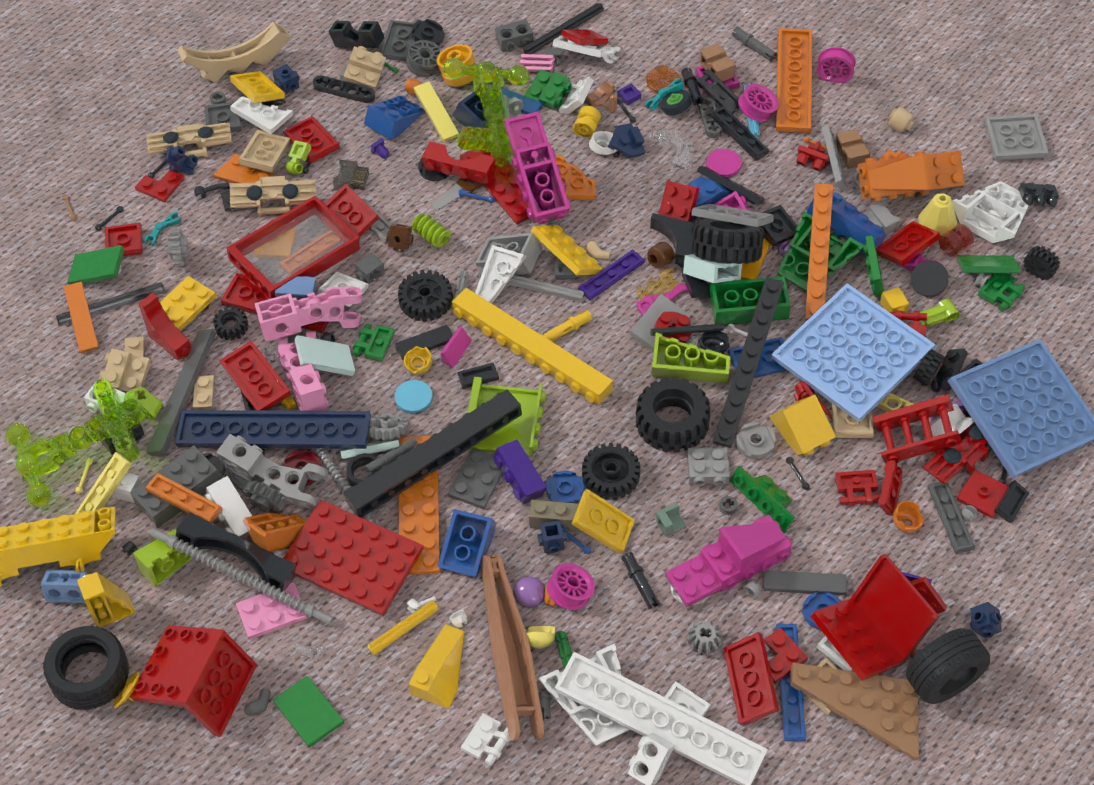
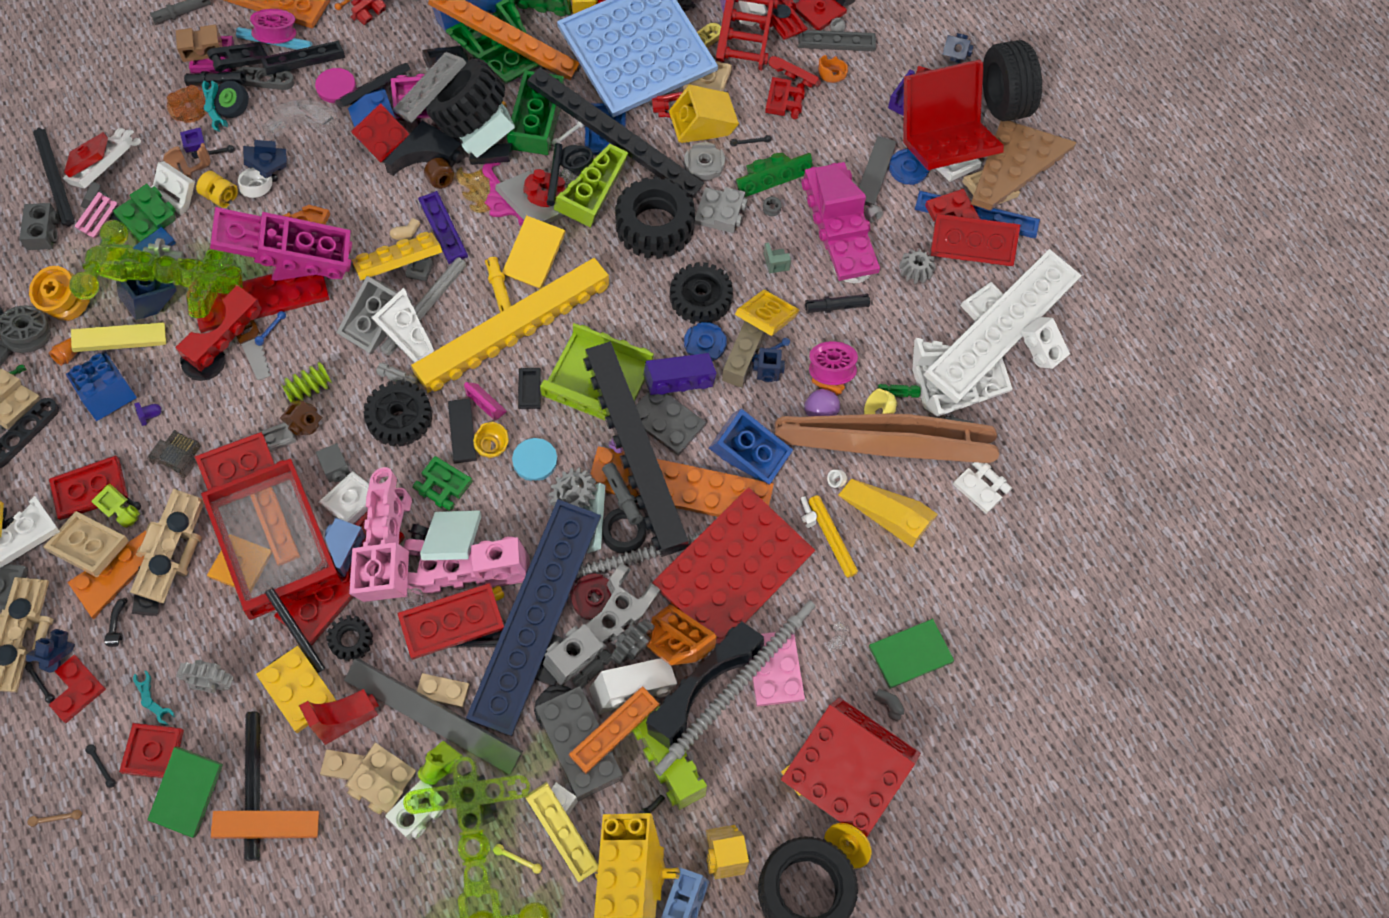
camera: 80 degrees left, 10 degrees up
(223, 285) = (294, 630): none -> black bar
(605, 339) = (534, 252): none -> yellow tile

